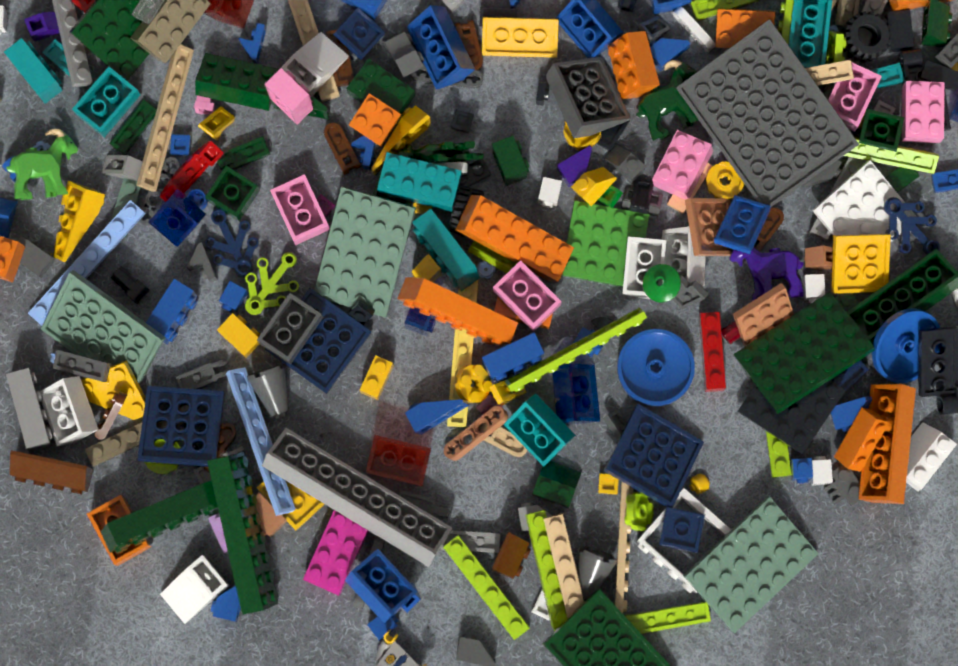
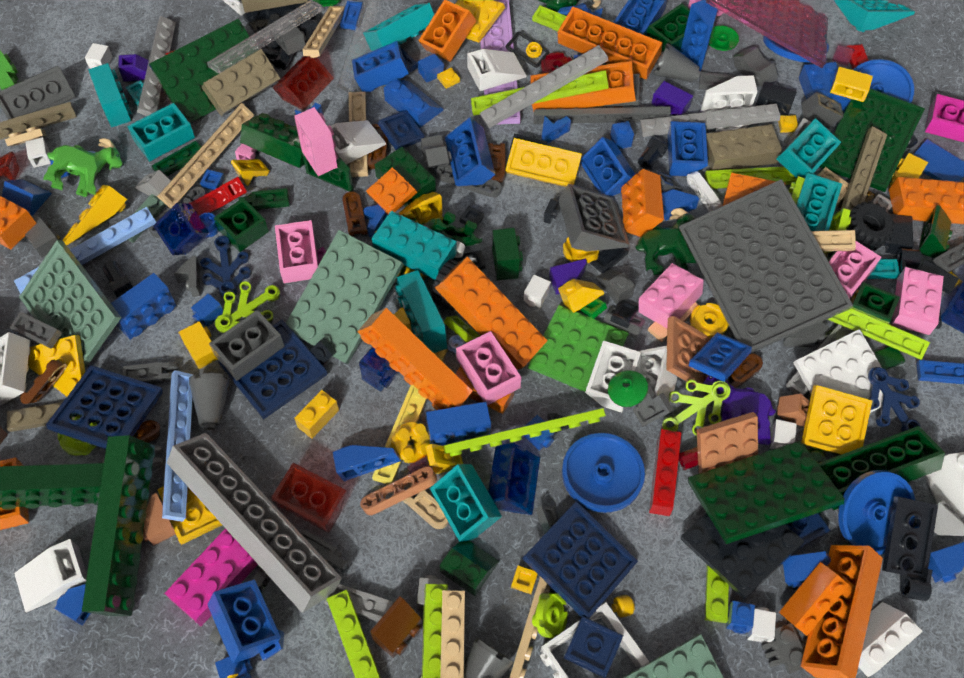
camera: 10 degrees right, 20 degrees down
(729, 279) = (698, 404): none -> lime plant

